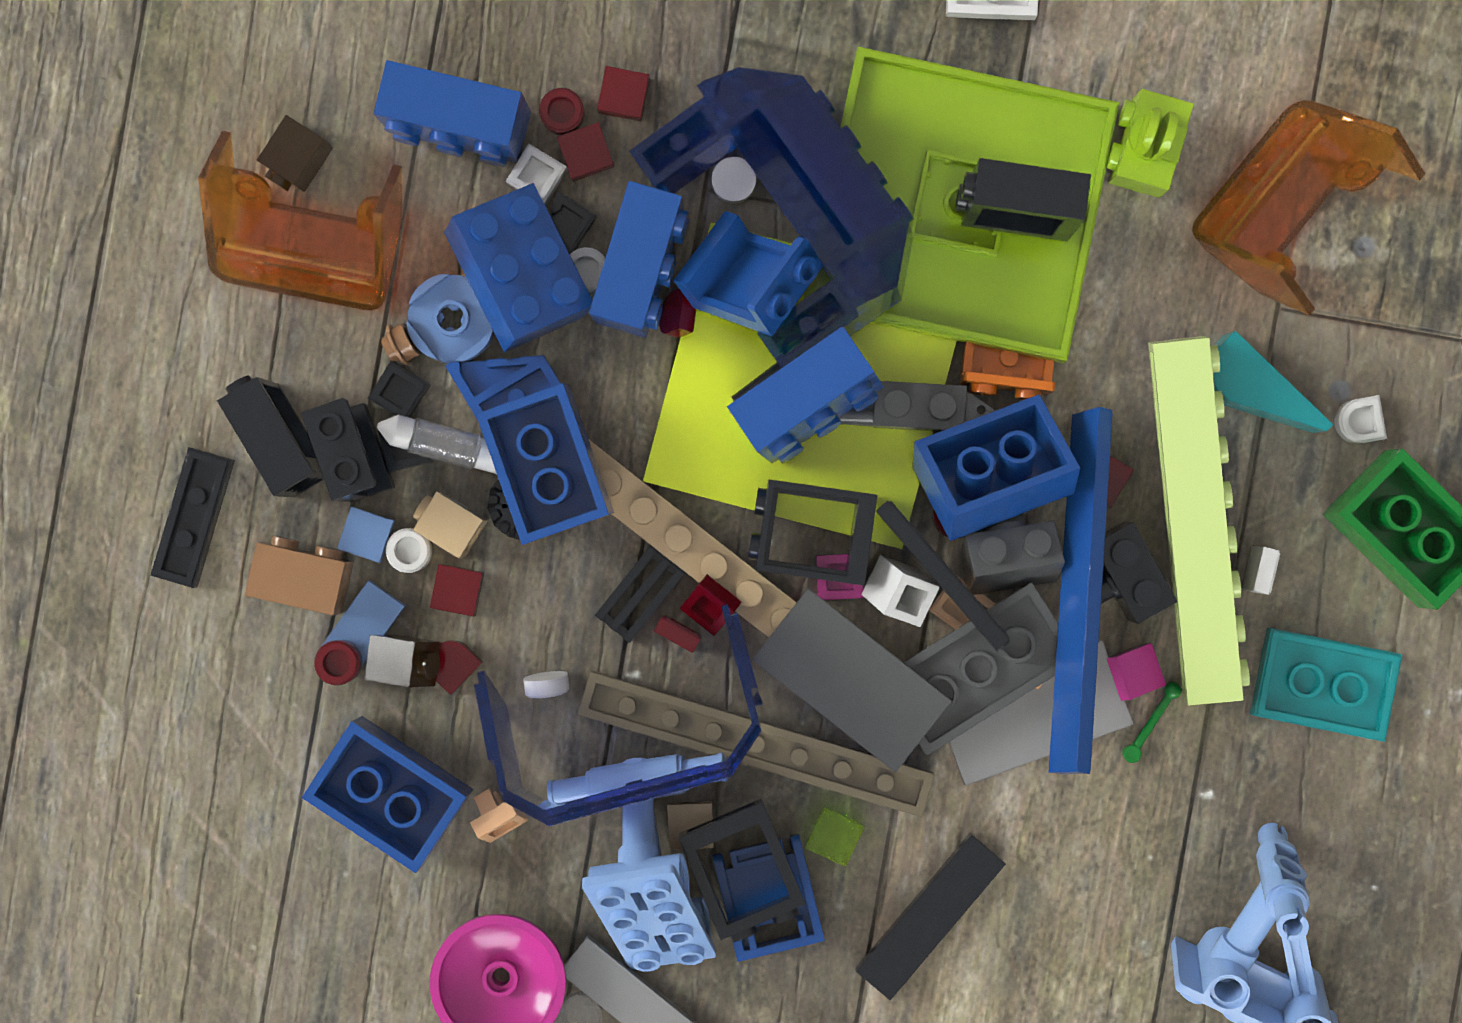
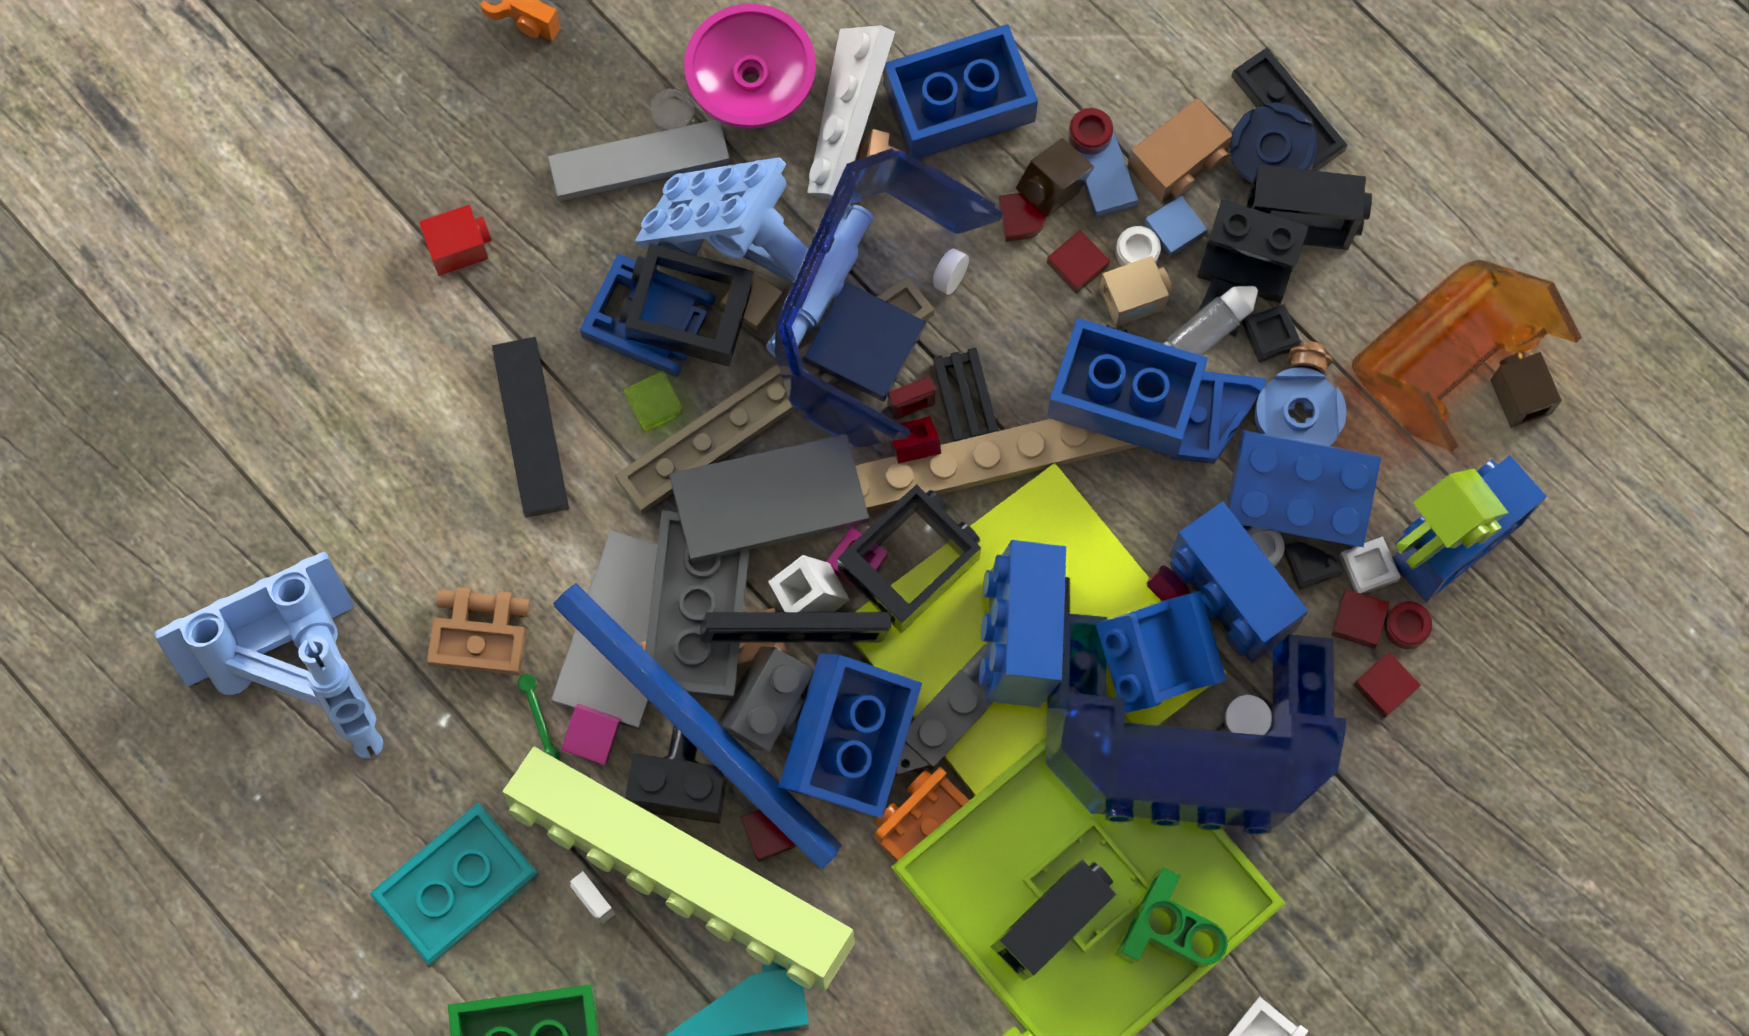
camera: 125 degrees right, 15 degrees down
(235, 505) = (1273, 137): none -> dark blue tile
(461, 879) = (849, 98): none -> white wing
(467, 111) = (1458, 511): none -> lime brick
(662, 705) = (865, 341): none -> dark blue tile
(955, 102) = (1183, 926): none -> green tile
(1136, 815) = (478, 645): none -> medium nougat plate

